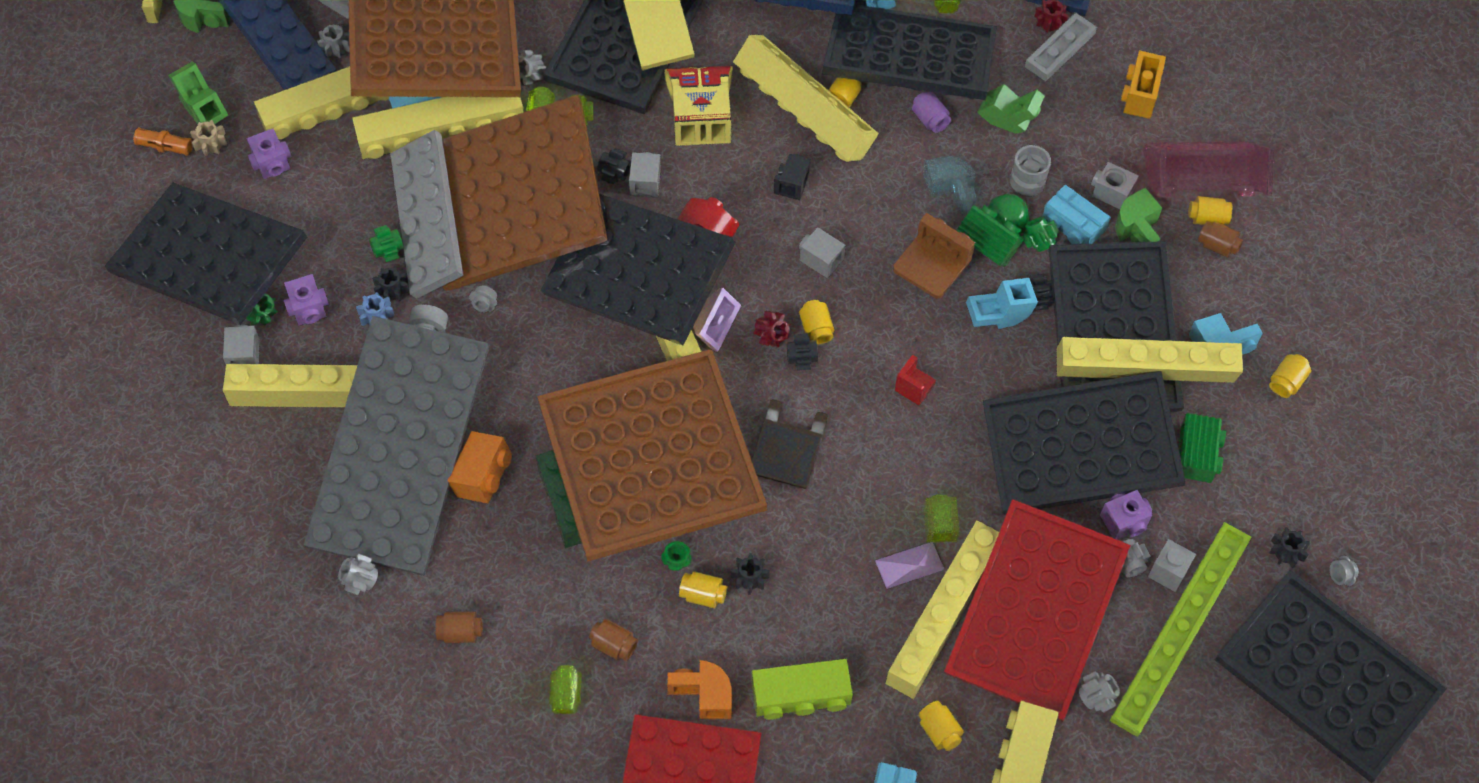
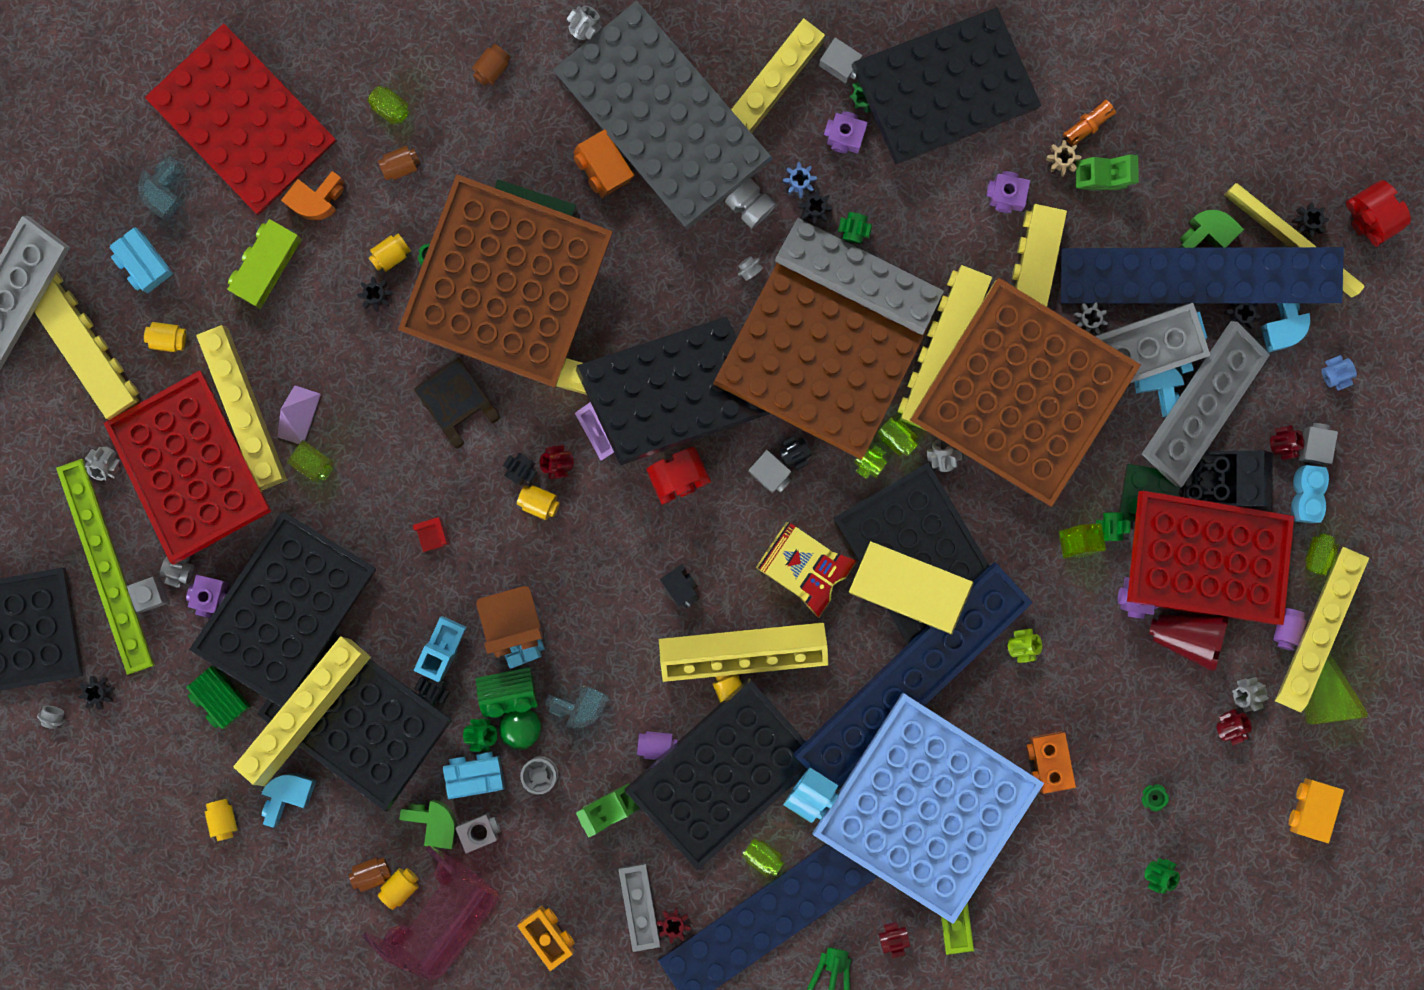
camera: 130 degrees right, 25 degrees up
(821, 252) = (595, 553): light grey brick -> none

